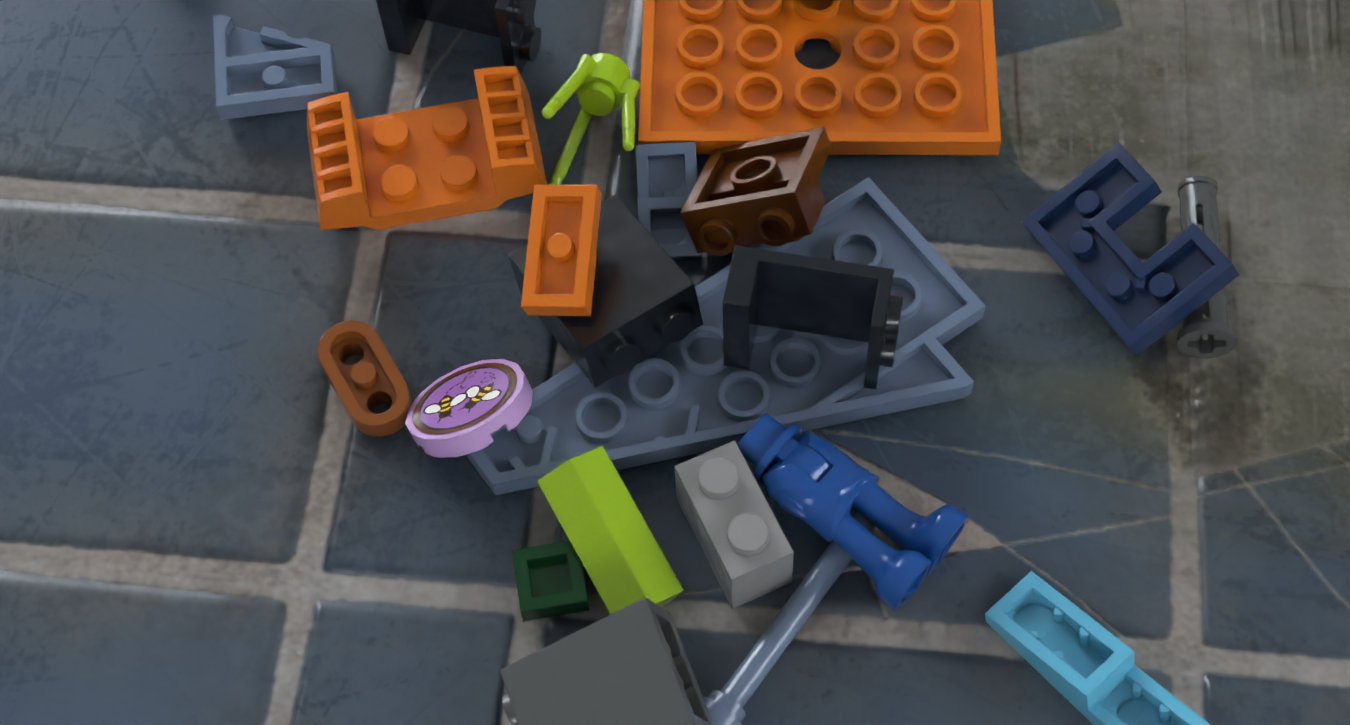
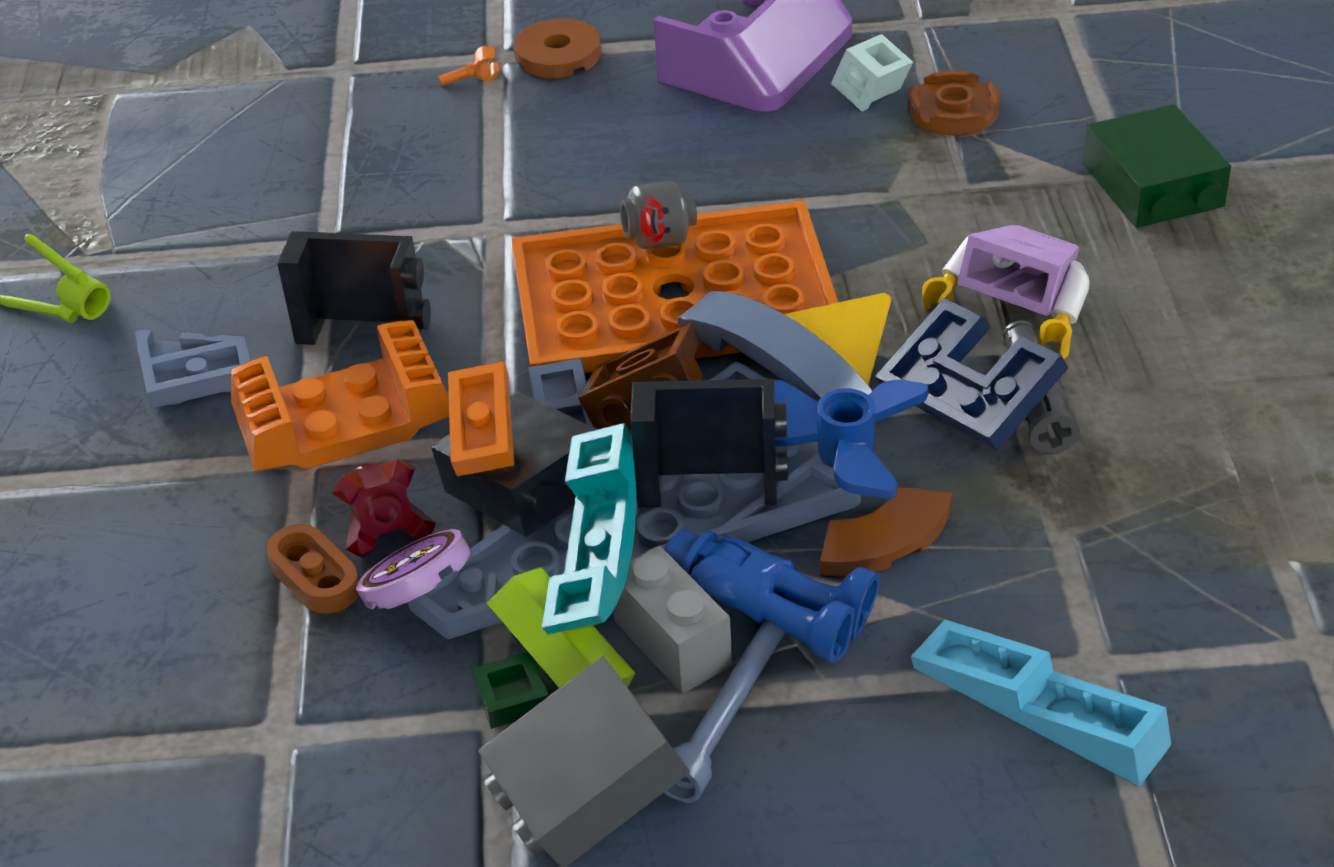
camera: 10 degrees left, 20 degrees down
(446, 310) = (380, 504): none -> dark red rock
(601, 86) = (490, 333): lime plant -> none
(670, 425) = (601, 531): none -> teal slope
(922, 178) = (772, 342): none -> sand blue slope
(973, 371) = (846, 429): none -> blue piece
(991, 444) = (889, 533): none -> dark orange tile
(994, 162) = (850, 329): none -> yellow piece
(1219, 105) = (1021, 270): none -> lavender torso

